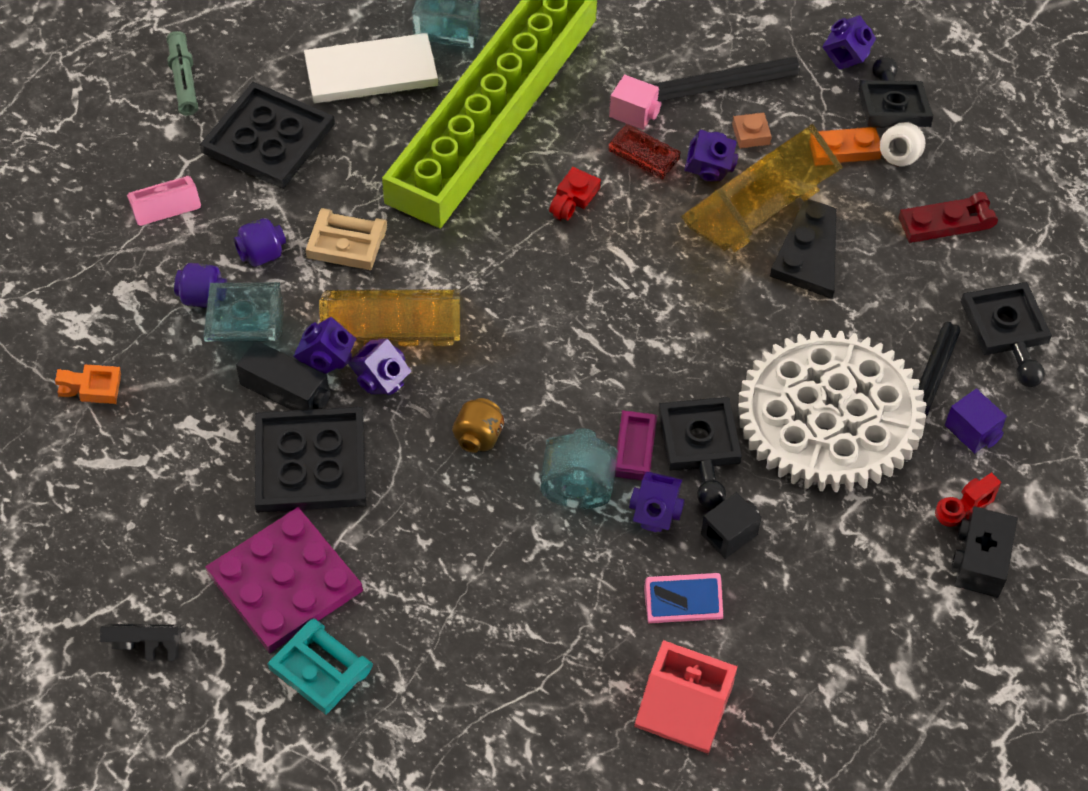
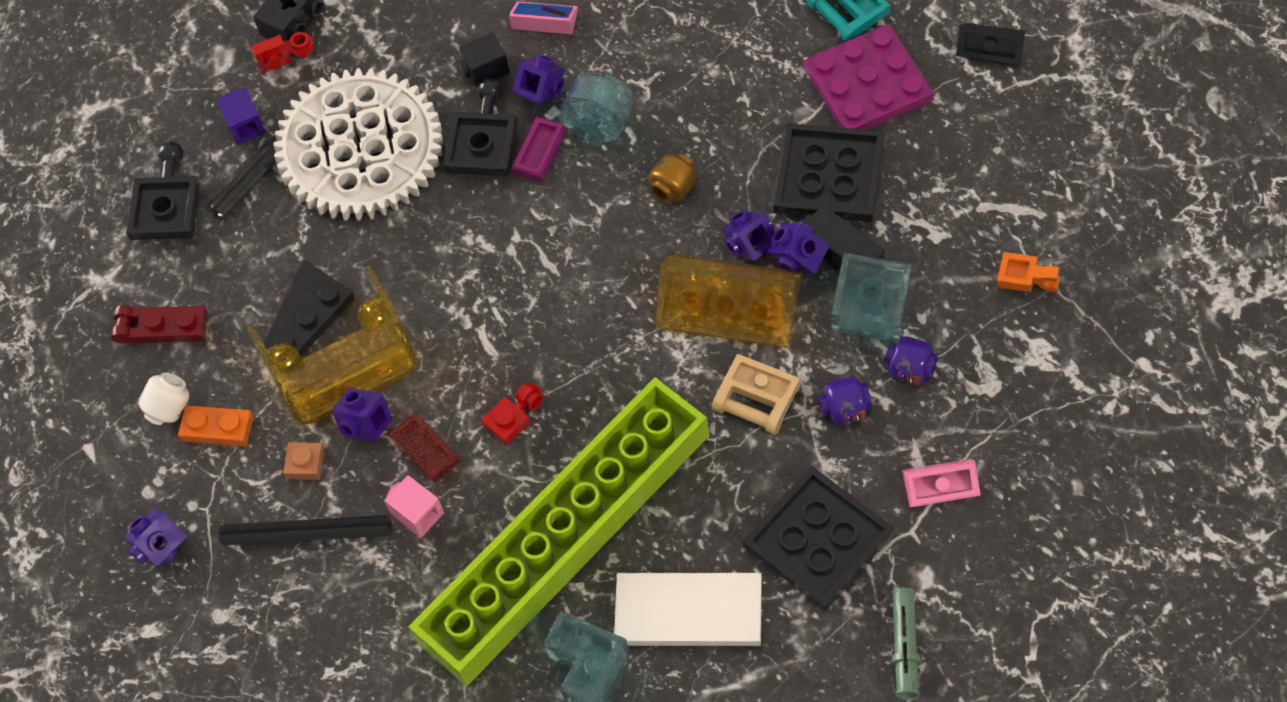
camera: 155 degrees left, 5 degrees up
(892, 101) = (155, 474): black plate -> none

